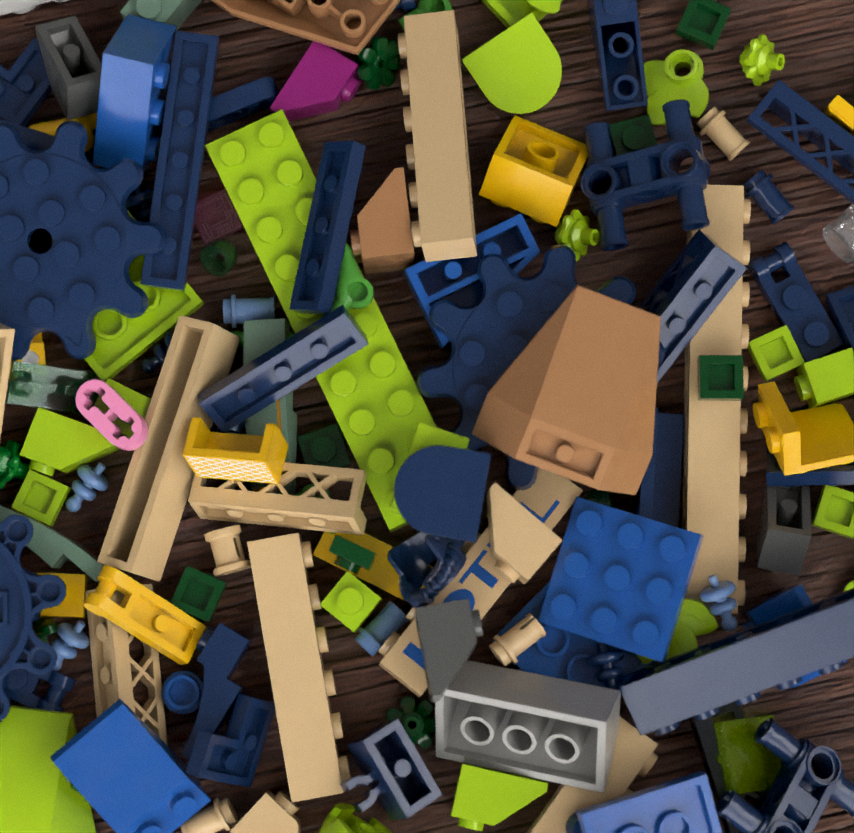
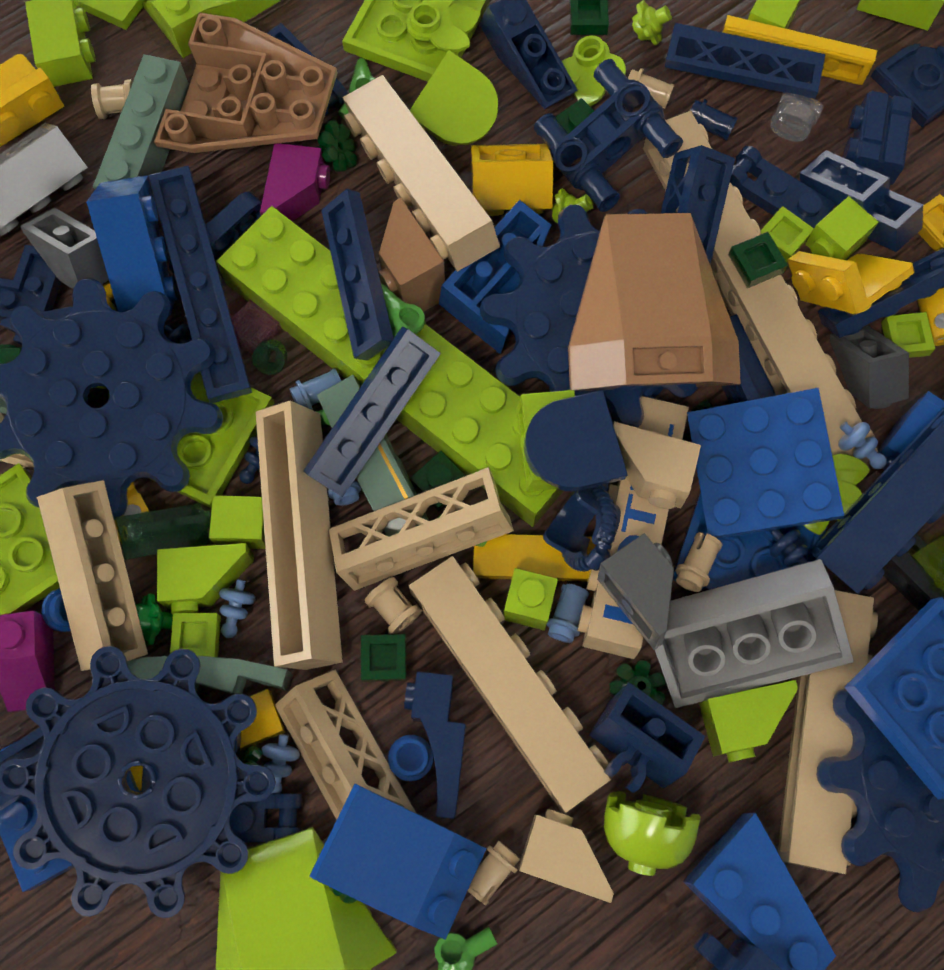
camera: 25 degrees left, 10 degrees down
(105, 421) = (227, 532): bright pink beam -> none
(145, 615) = (342, 697): yellow plate -> none
(235, 455) = (364, 510): yellow panel -> none
(236, 754) = (488, 792): dark blue plate -> none
(351, 555) = (511, 554): dark green plate -> none

